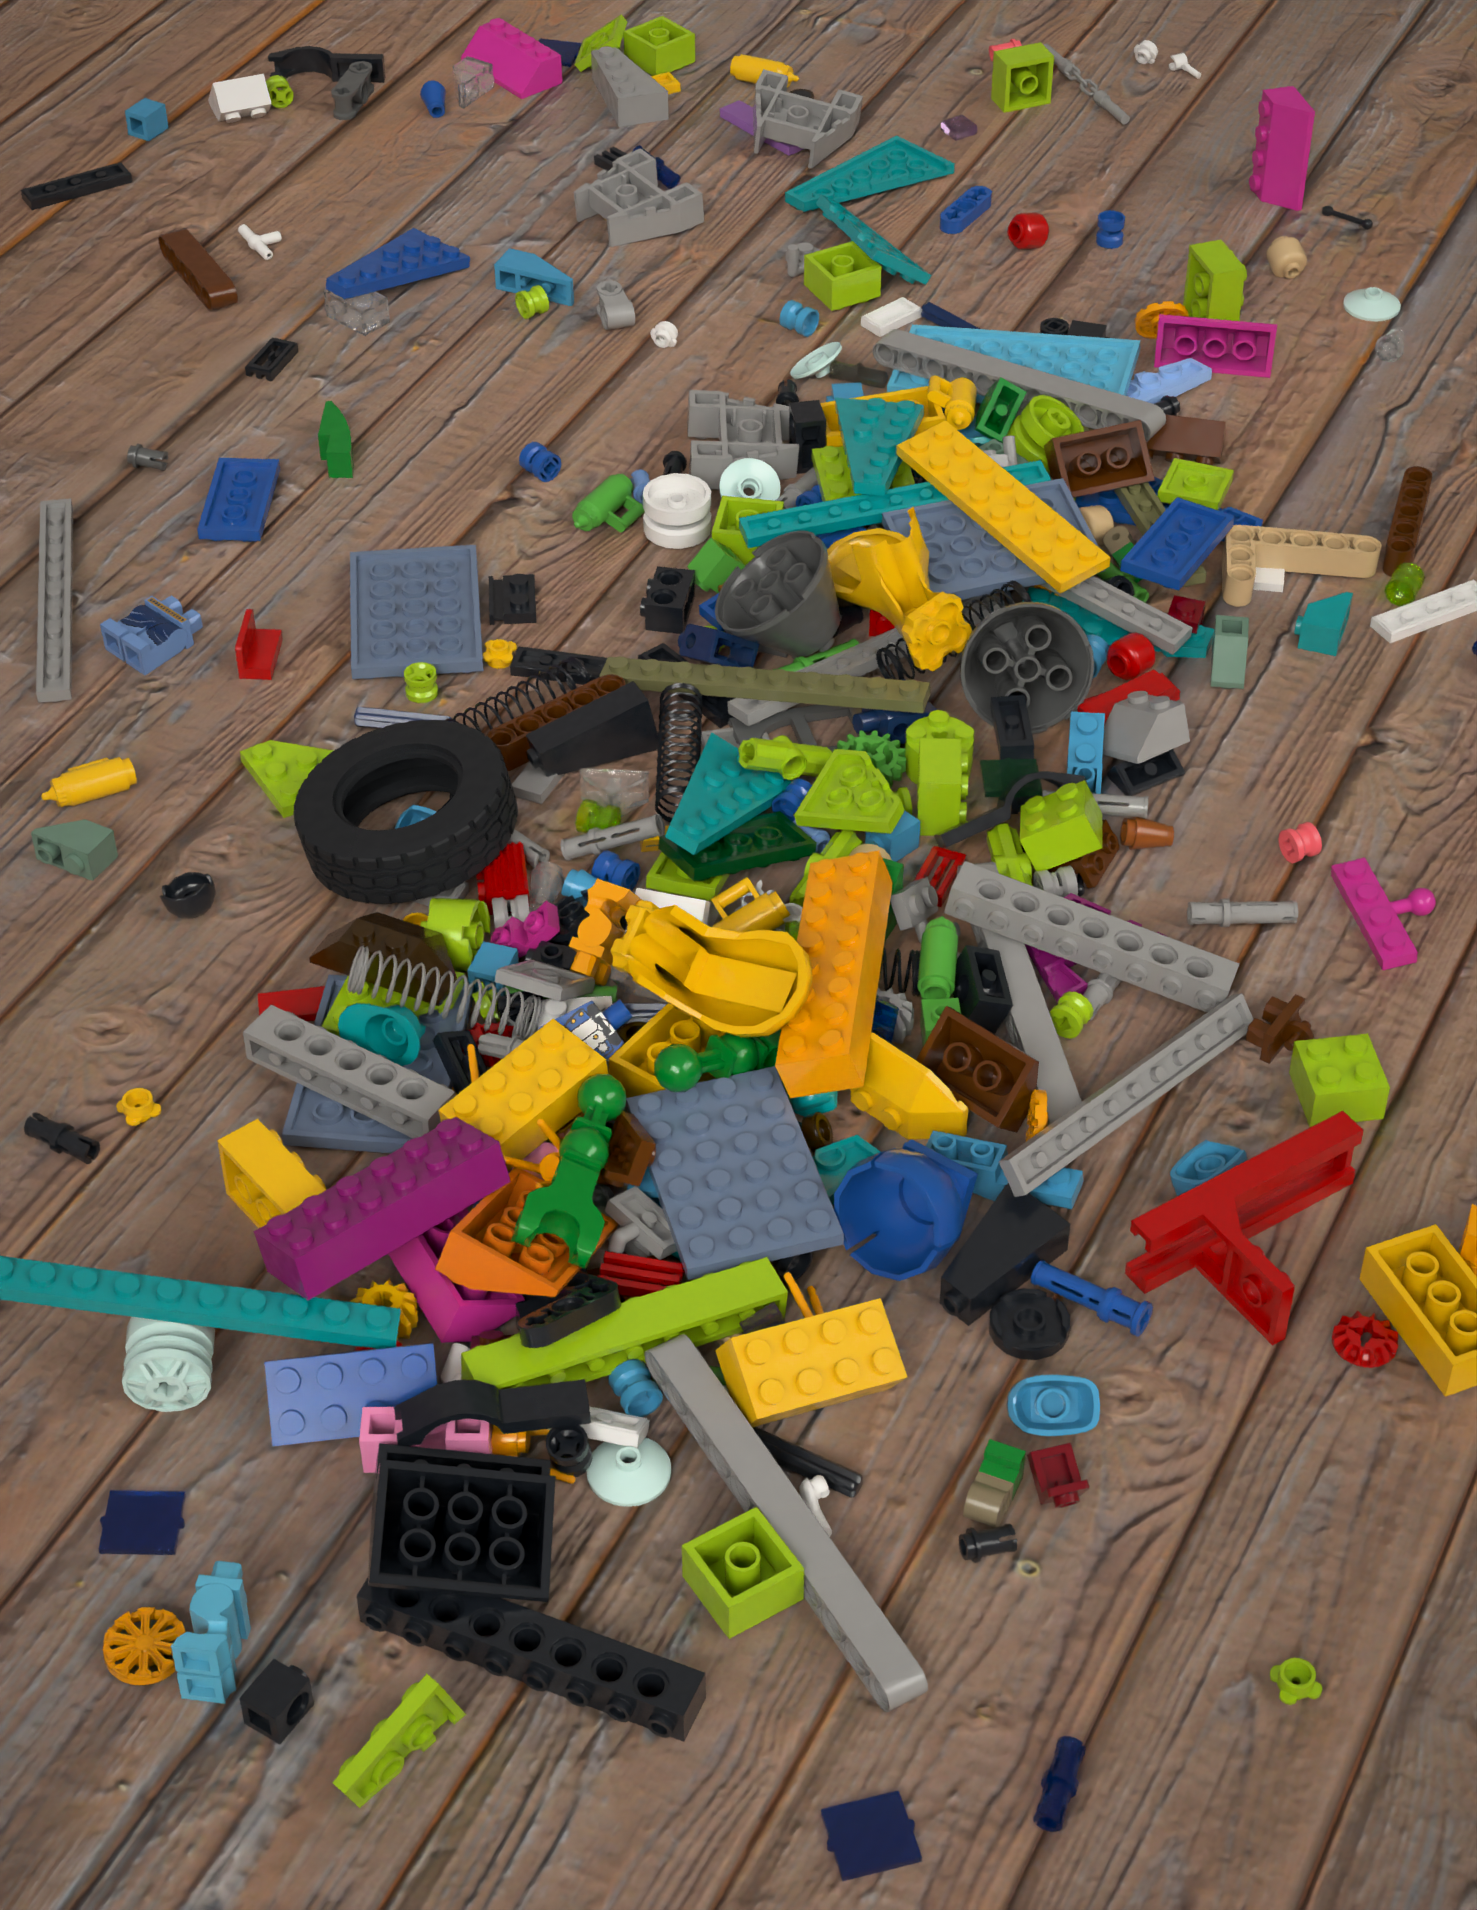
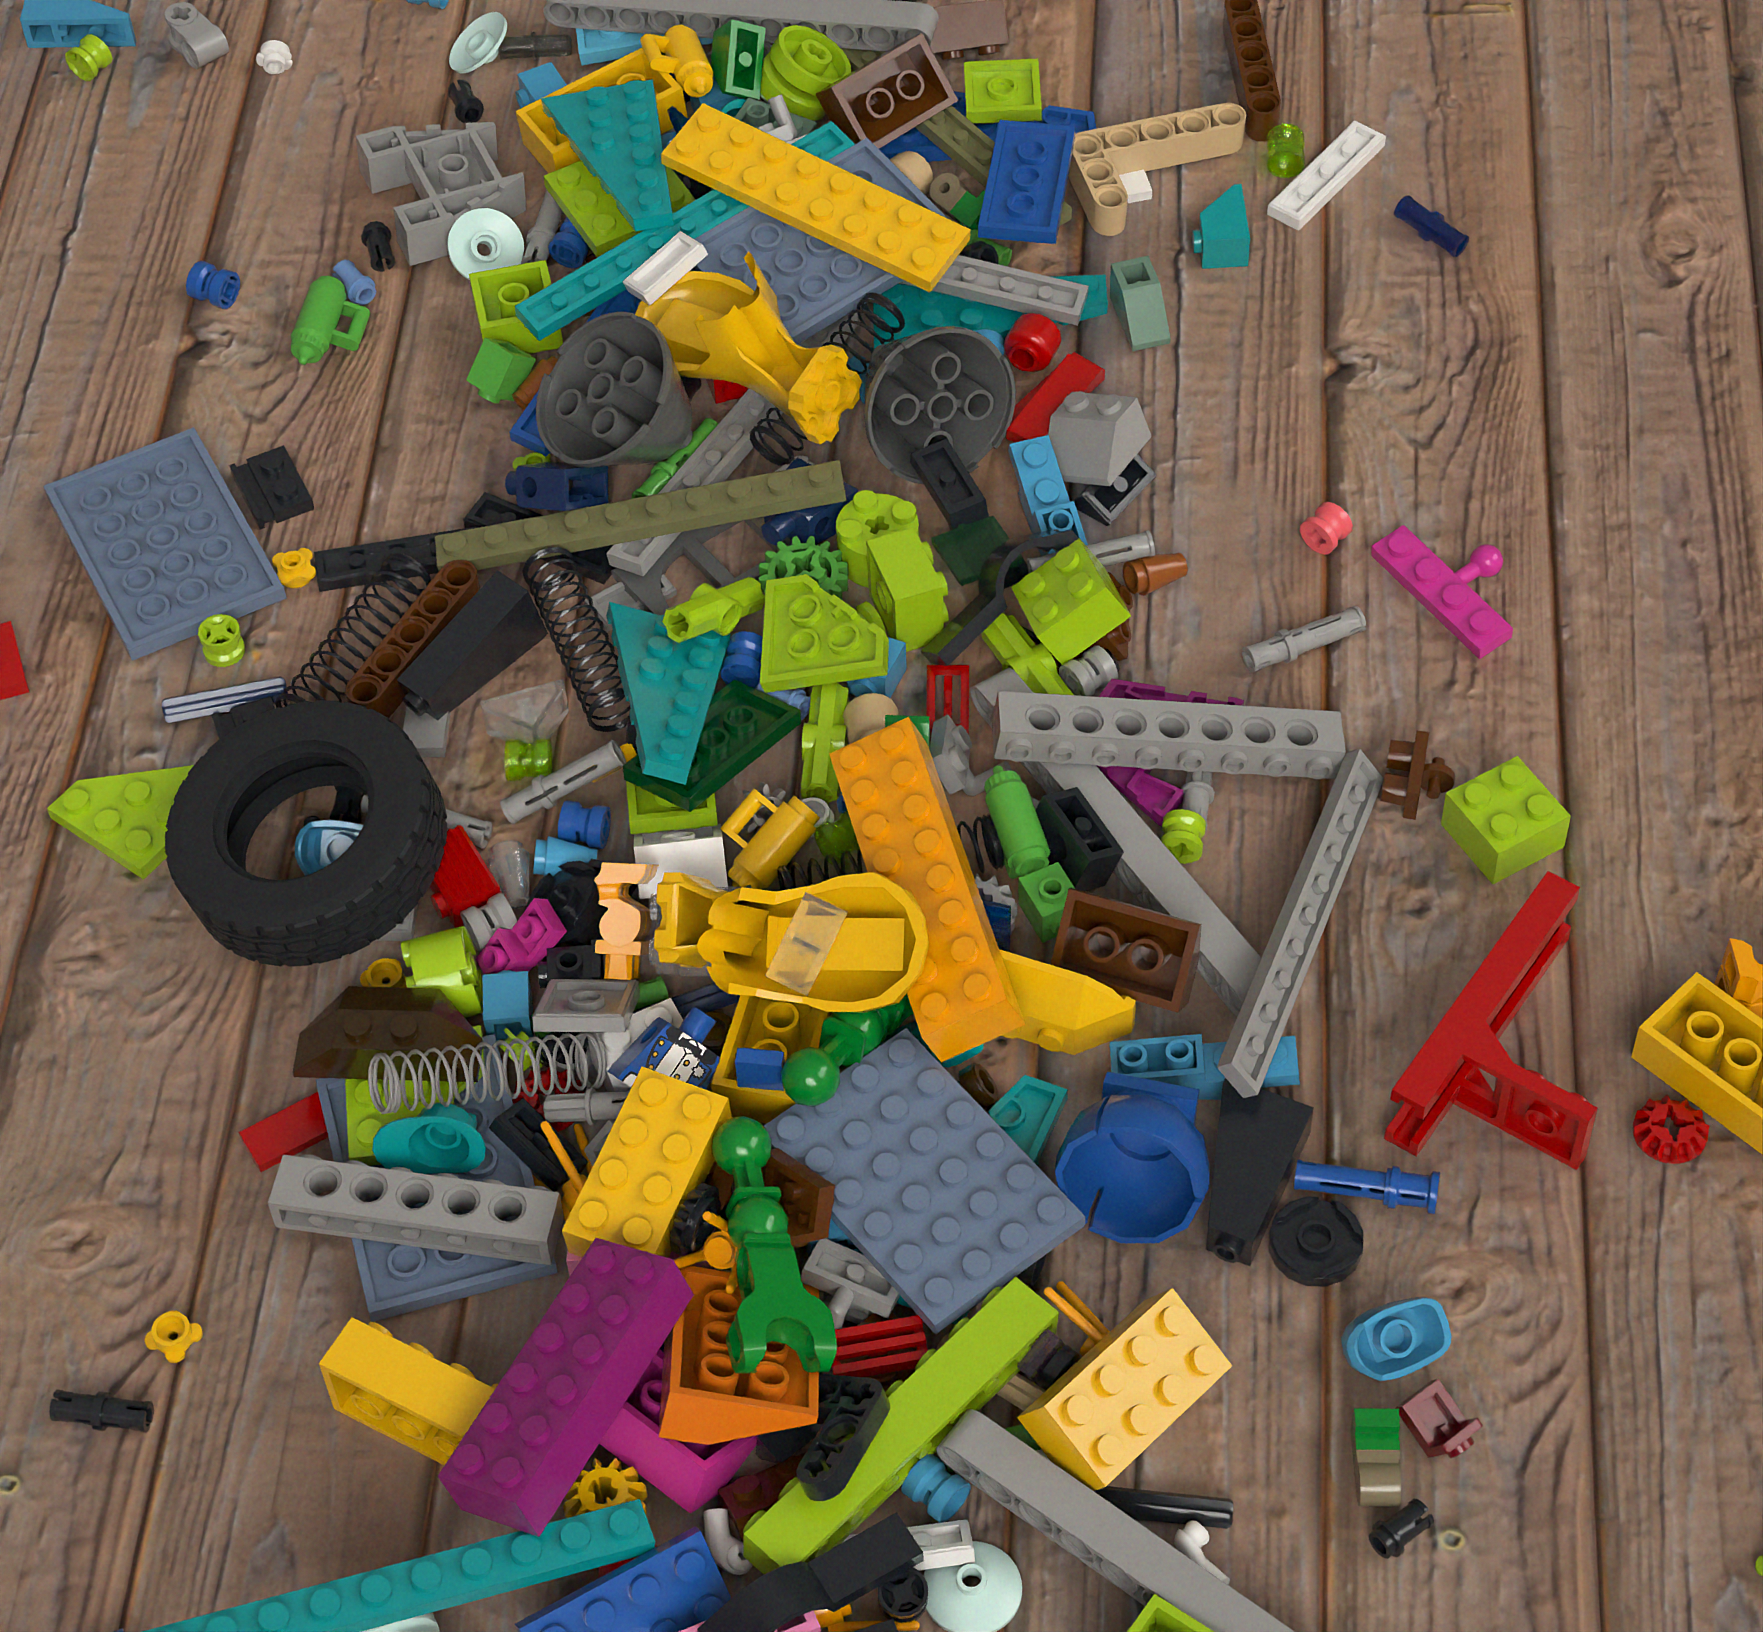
camera: 20 degrees left, 10 degrees up
(189, 895) = (88, 1028): black hair -> none
(532, 1147) = (689, 1227): none -> black gear
(642, 1052) = (759, 1068): none -> blue tile
(668, 600) = (465, 431): black brick -> none
(677, 511) = (417, 306): white wheel -> none
(716, 971) = (806, 944): none -> clear slope
(808, 430) = (525, 149): black brick -> none
(862, 521) = (665, 268): none -> white tile
(1038, 1114) = (1218, 993): light orange wheel -> none
(1188, 611) = (1069, 264): dark red bracket -> none
(1203, 1164) = (1423, 985): dark azure piece -> none

